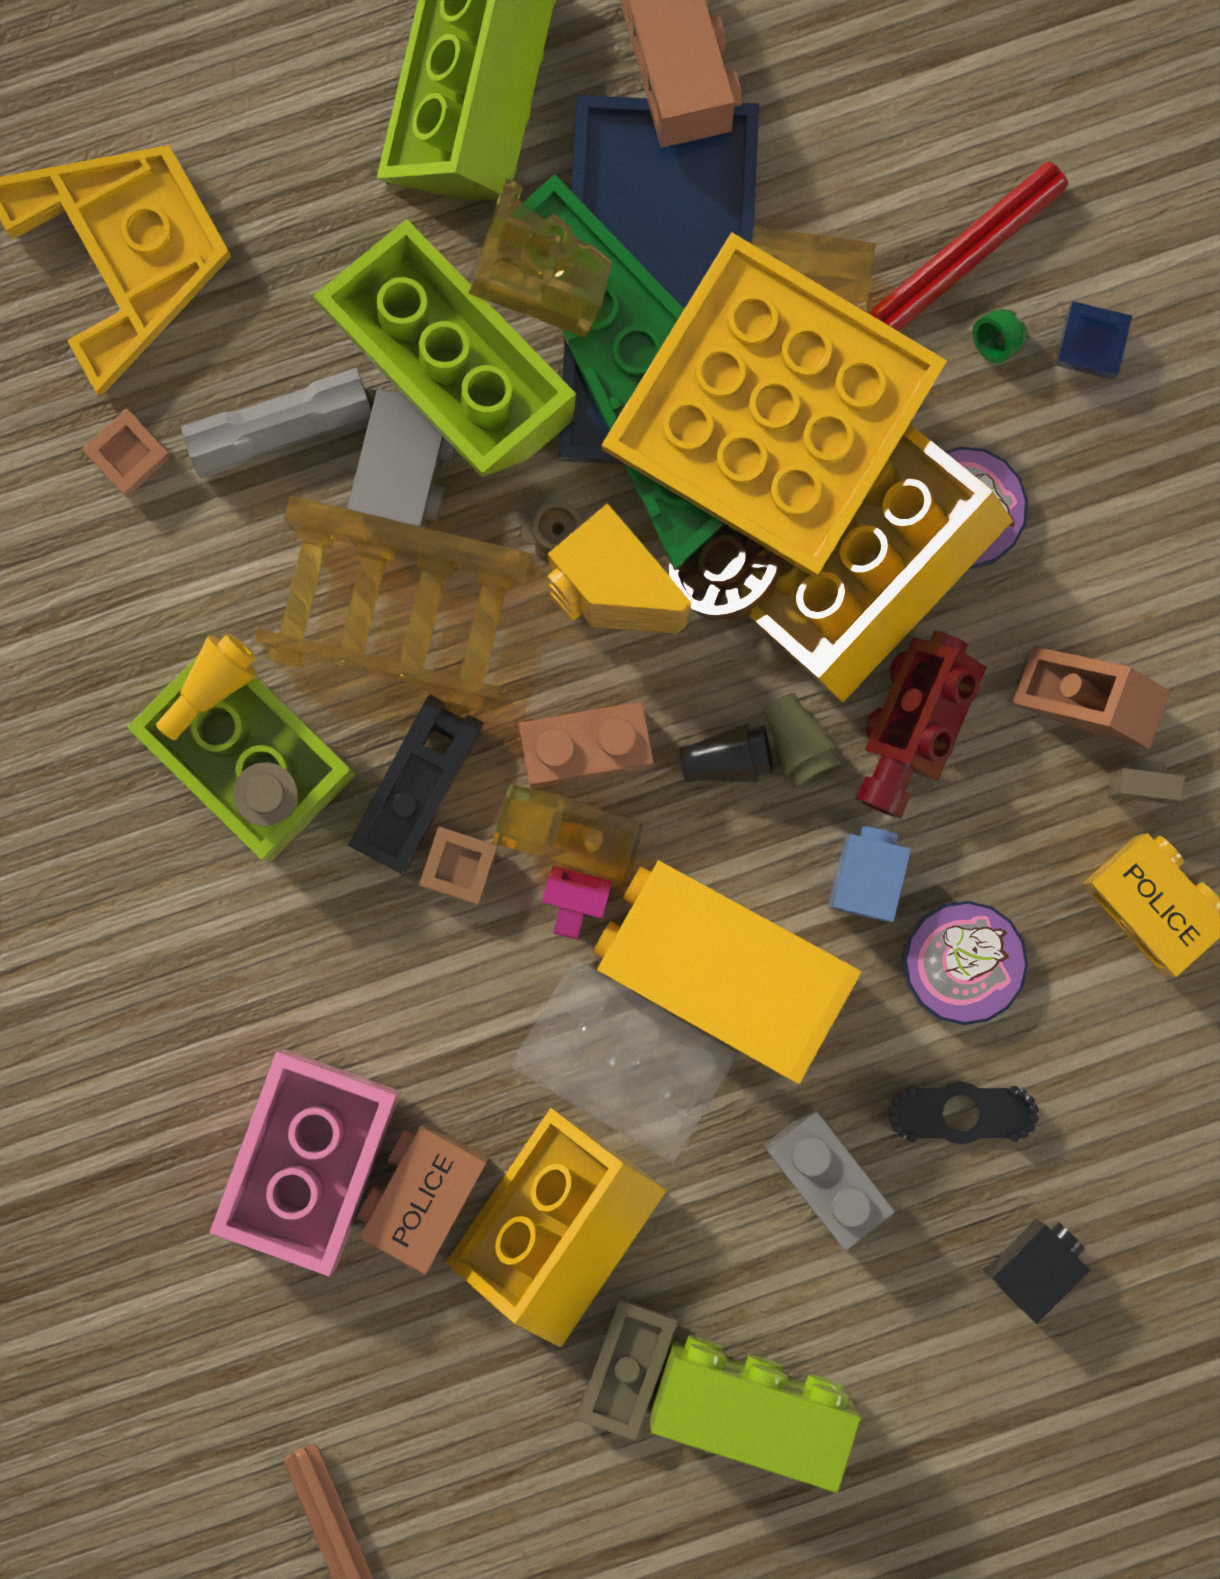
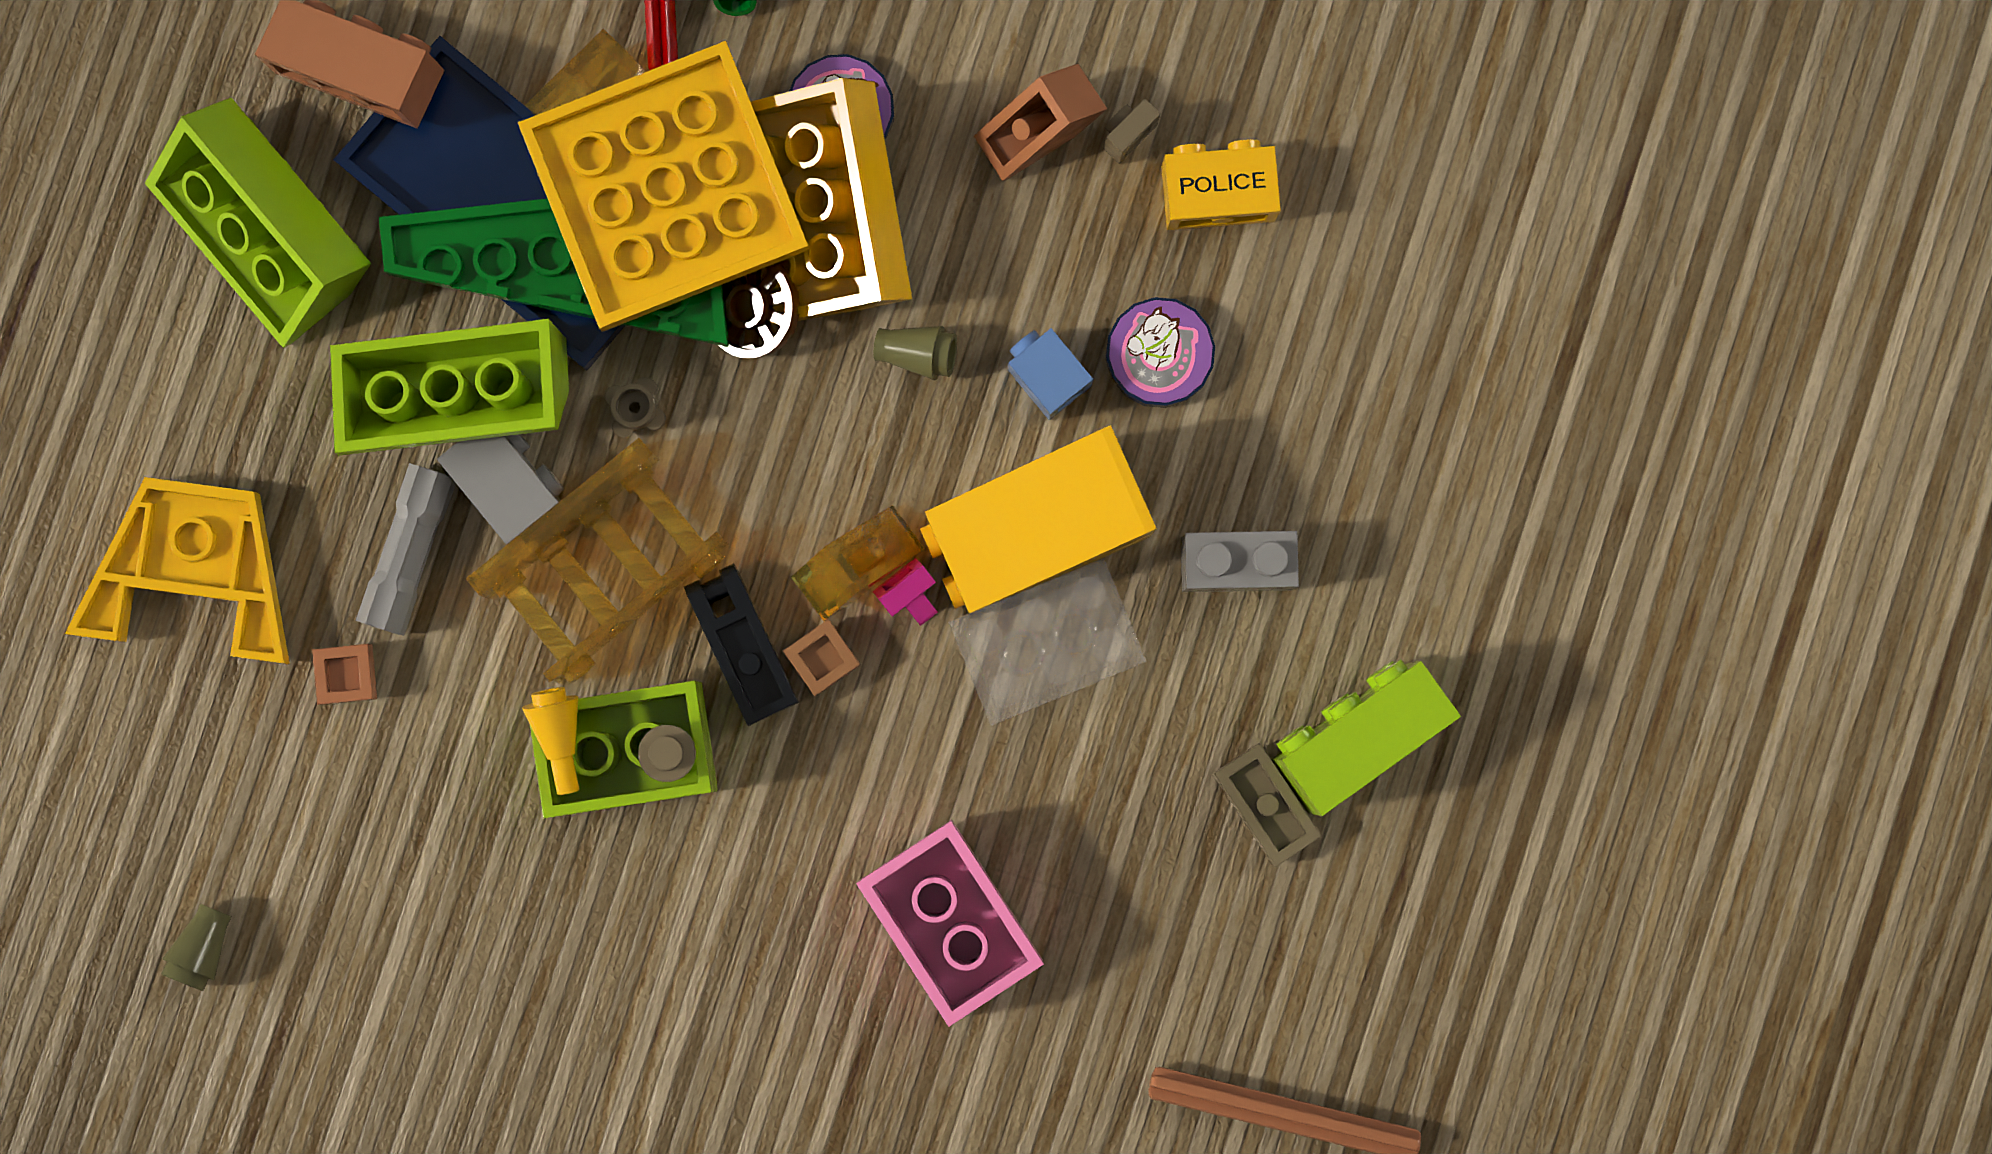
camera: 55 degrees left, 0 degrees up
(422, 1196) = (1037, 859): nougat brick -> none
(539, 266) = (437, 276): clear yellow slope -> none
(555, 1228) = (1130, 781): yellow slope -> none
(586, 745) = (805, 502): nougat brick -> none
(614, 579) = (703, 391): yellow slope -> none
(729, 756) = (889, 407): black cone -> none
(919, 718) = (964, 253): dark red brick -> none
(1001, 1113) = (1285, 407): black piece -> none
(1039, 1268) = (1412, 461): black brick -> none

